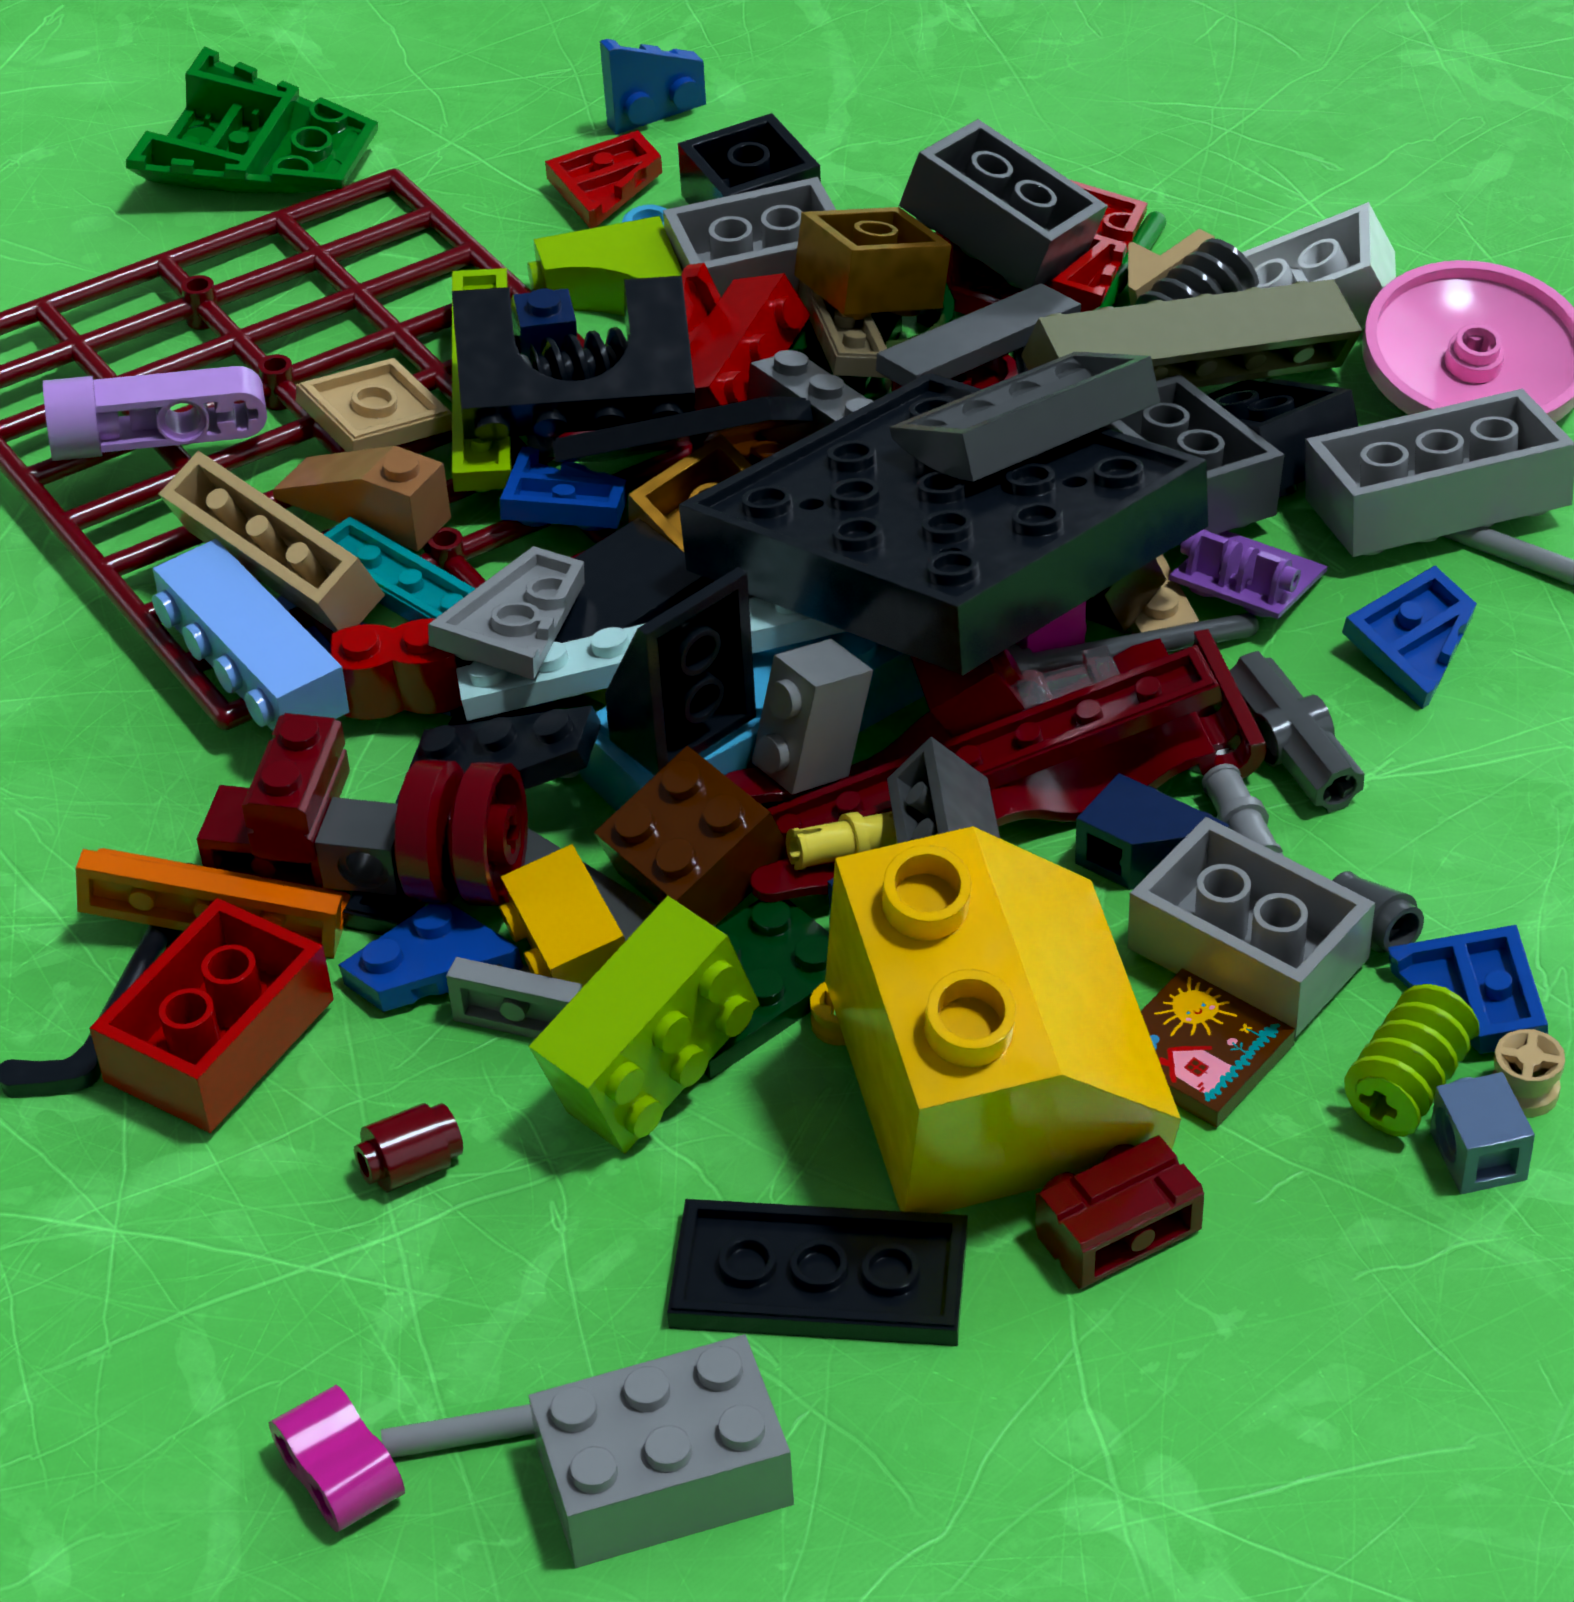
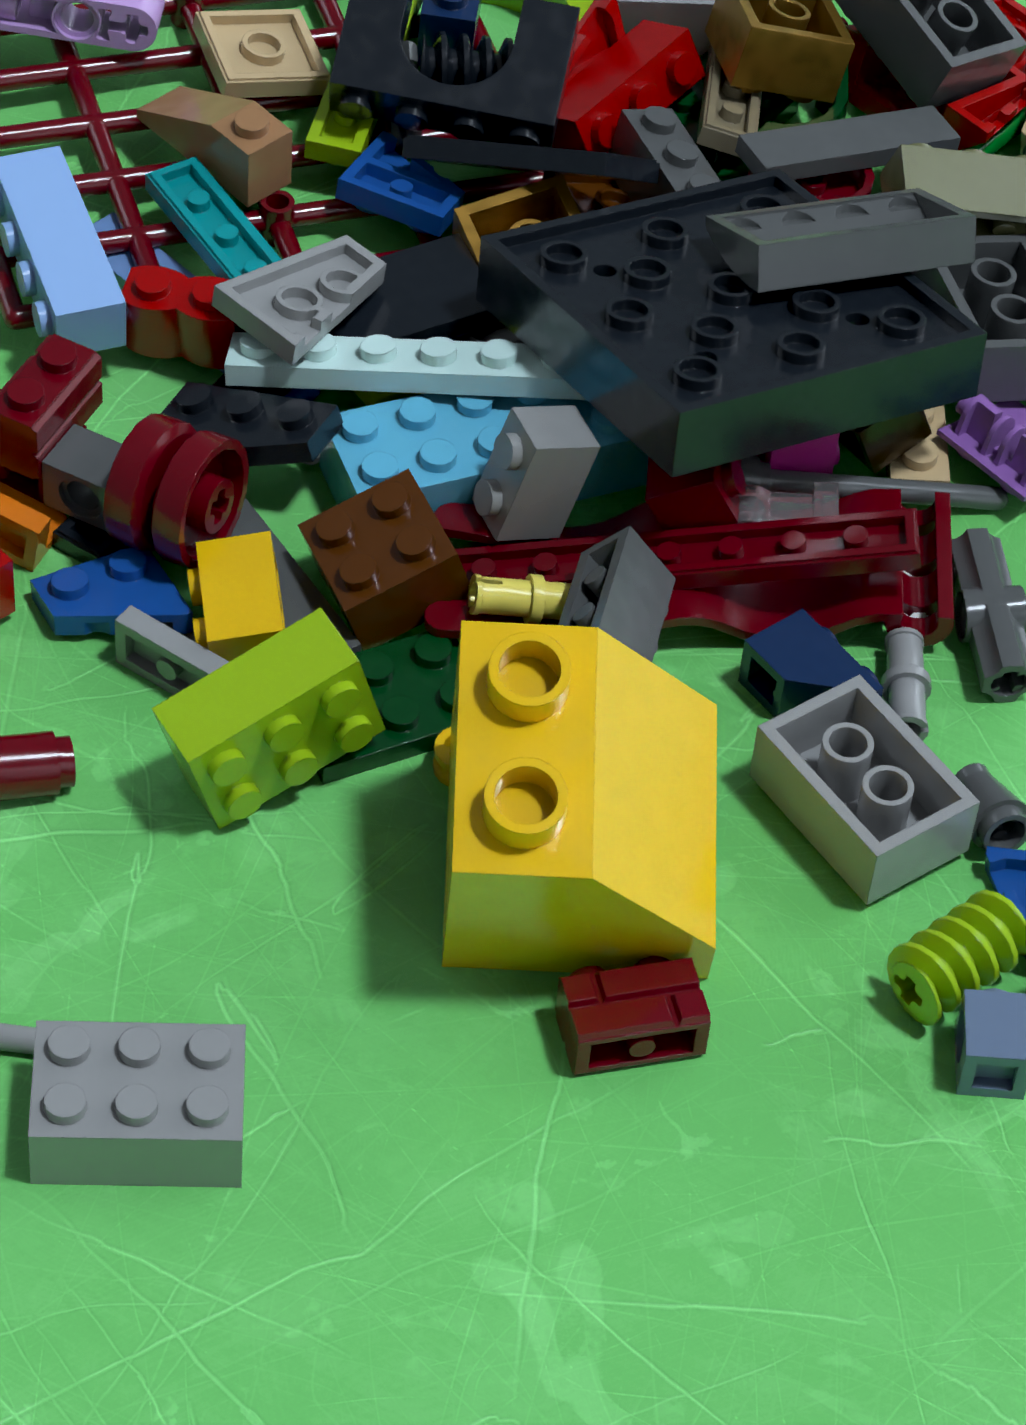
camera: 10 degrees right, 5 degrees up
(272, 543) = (110, 164): tan brick -> none
(685, 676) = (423, 404): black slope -> none
(819, 1272) = (346, 988): black tile -> none
(1212, 1045) = (781, 888): reddish brown tile -> none

